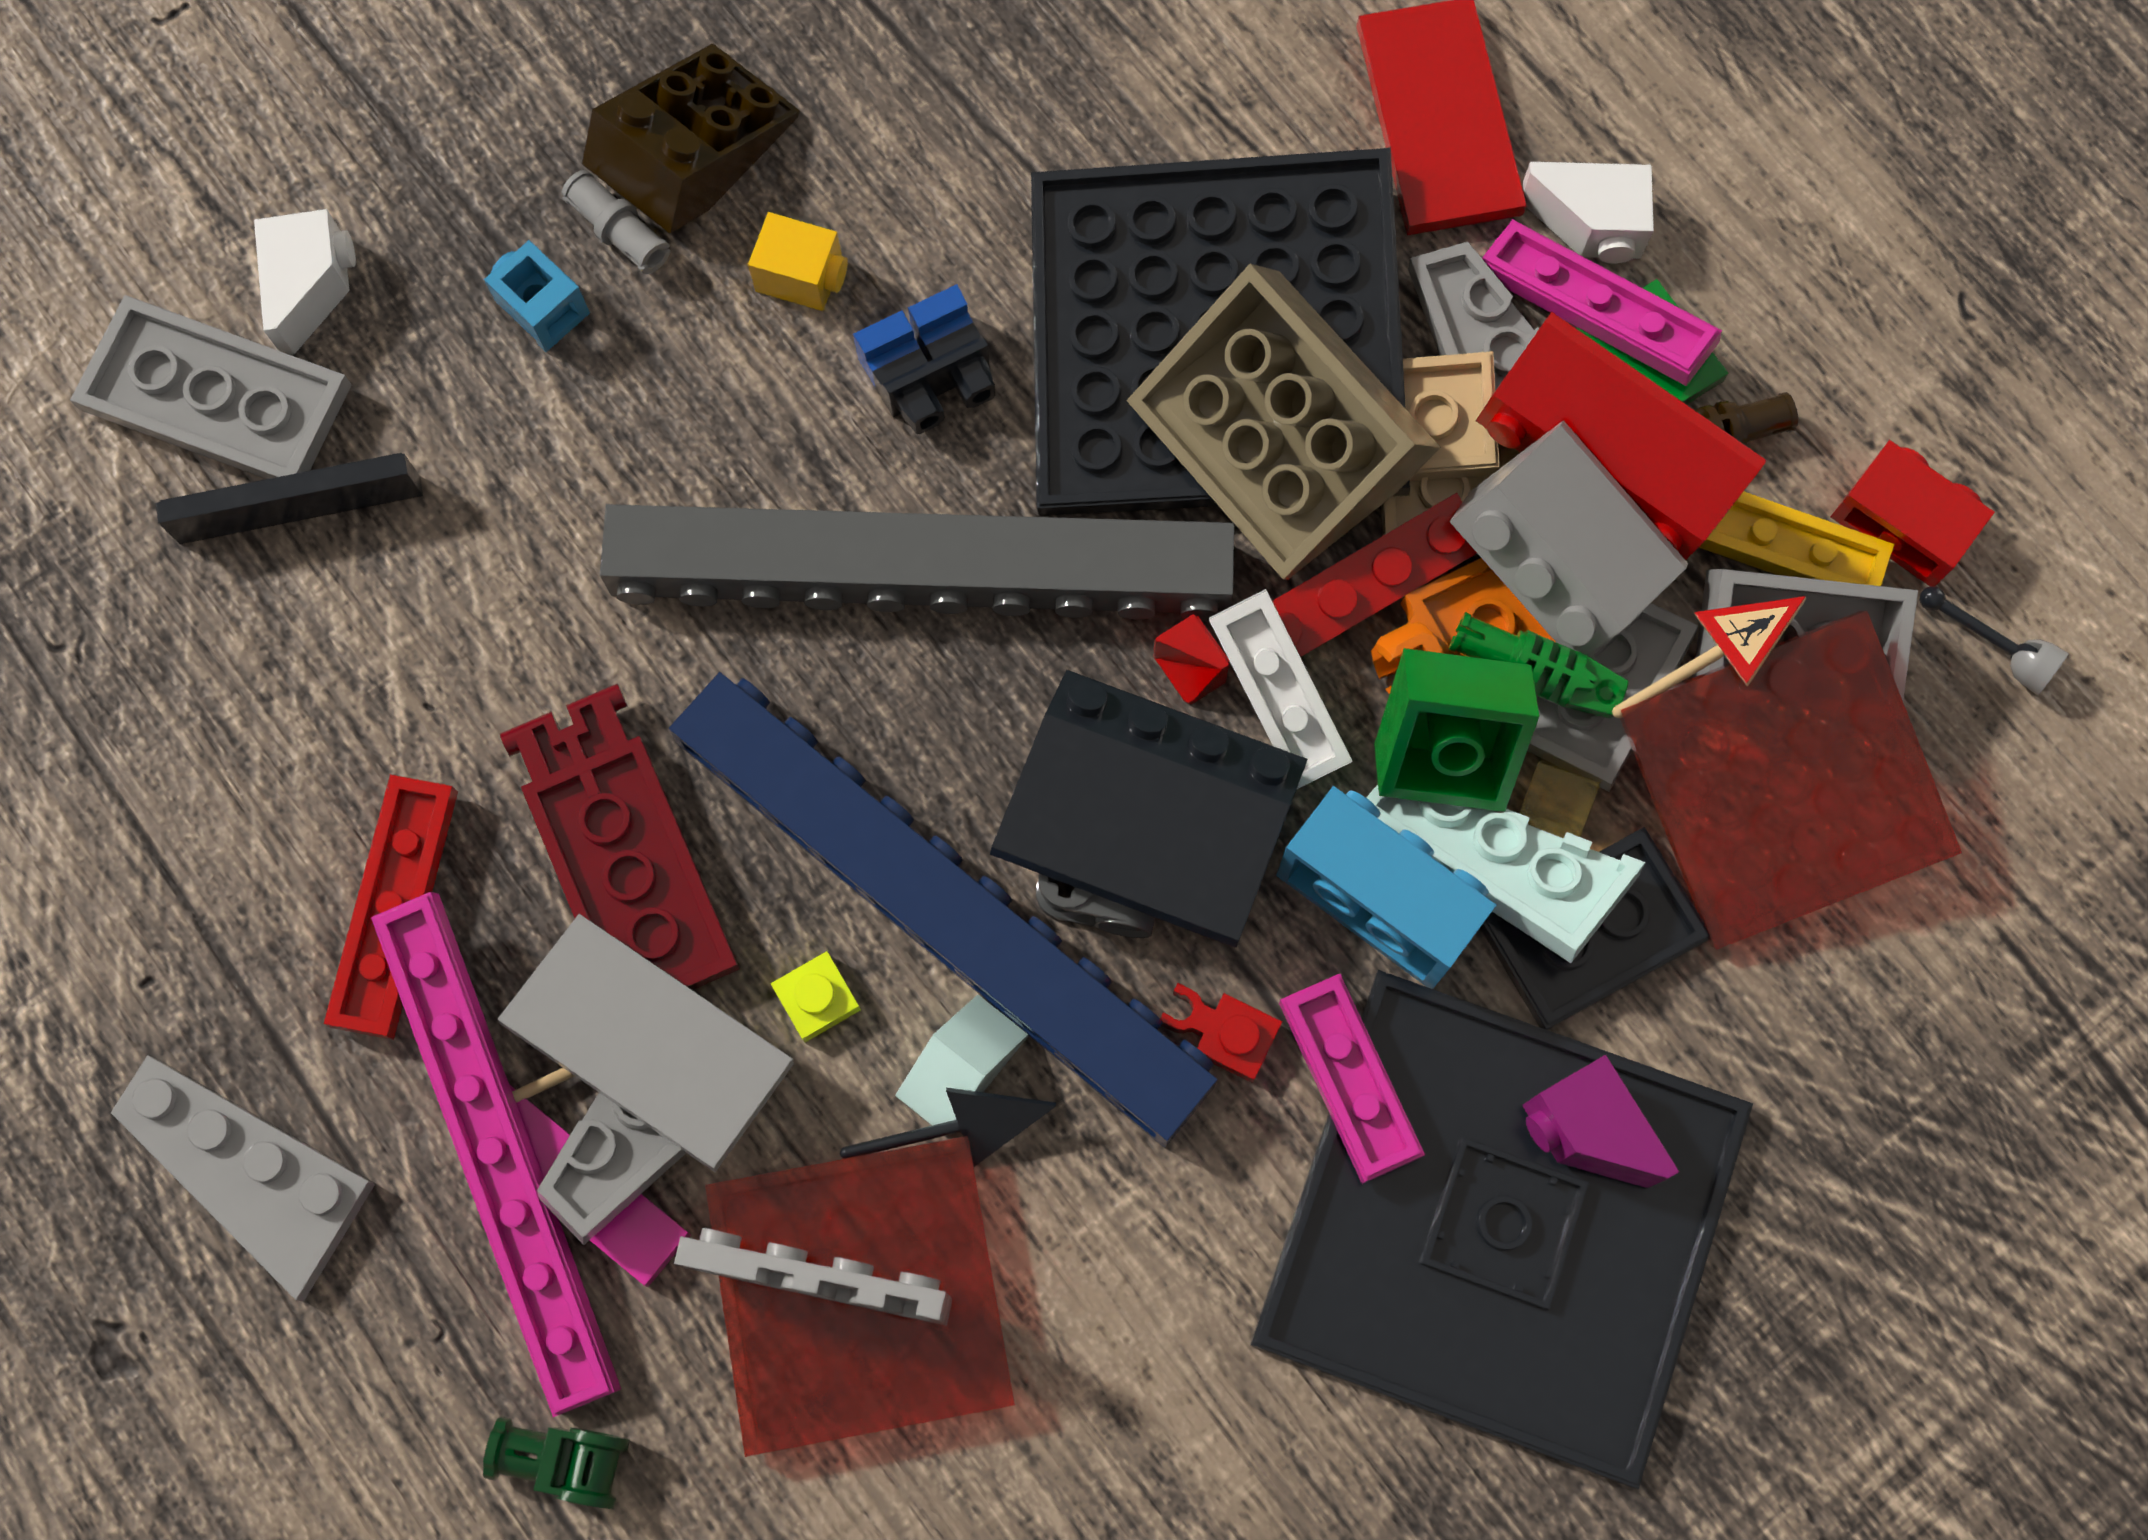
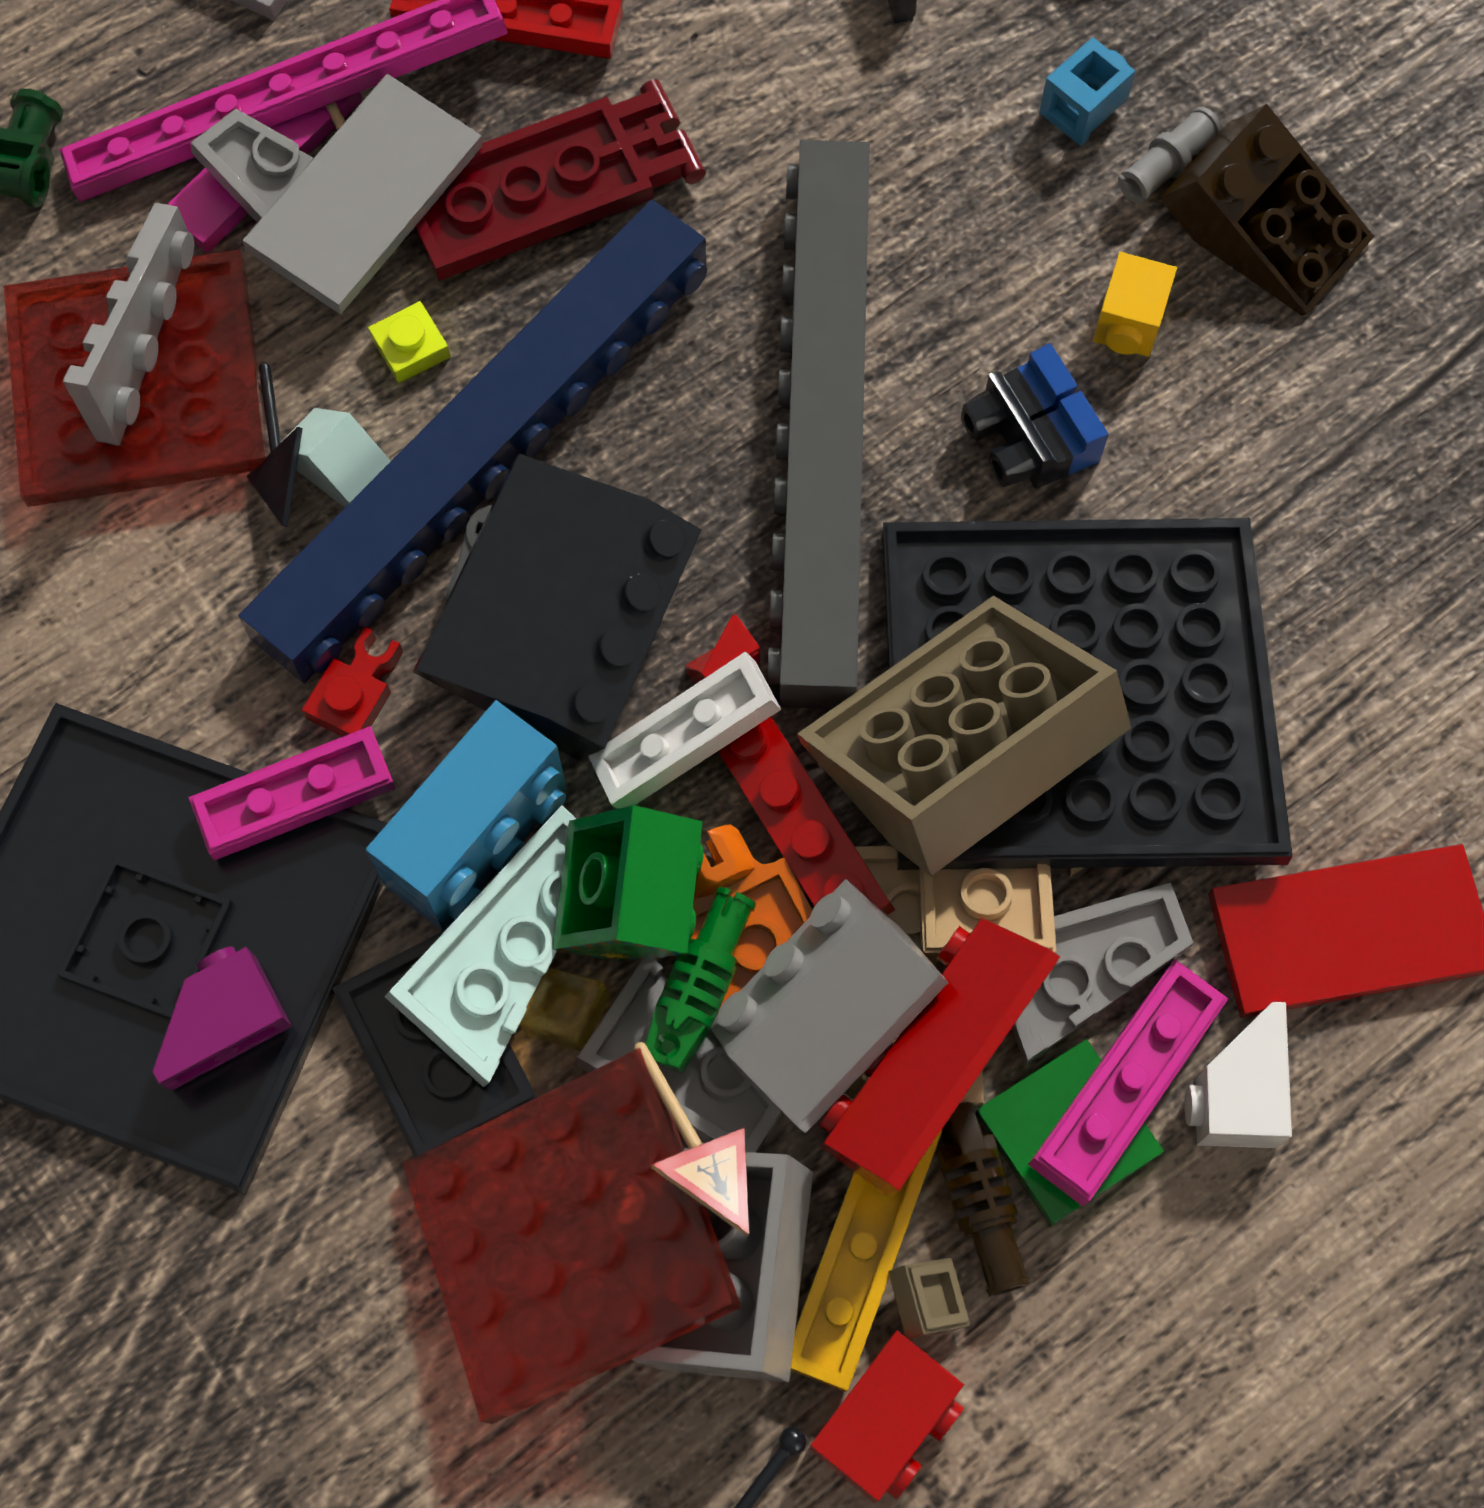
camera: 90 degrees right, 5 degrees down
(1804, 477) = (929, 1298): none -> dark tan tile

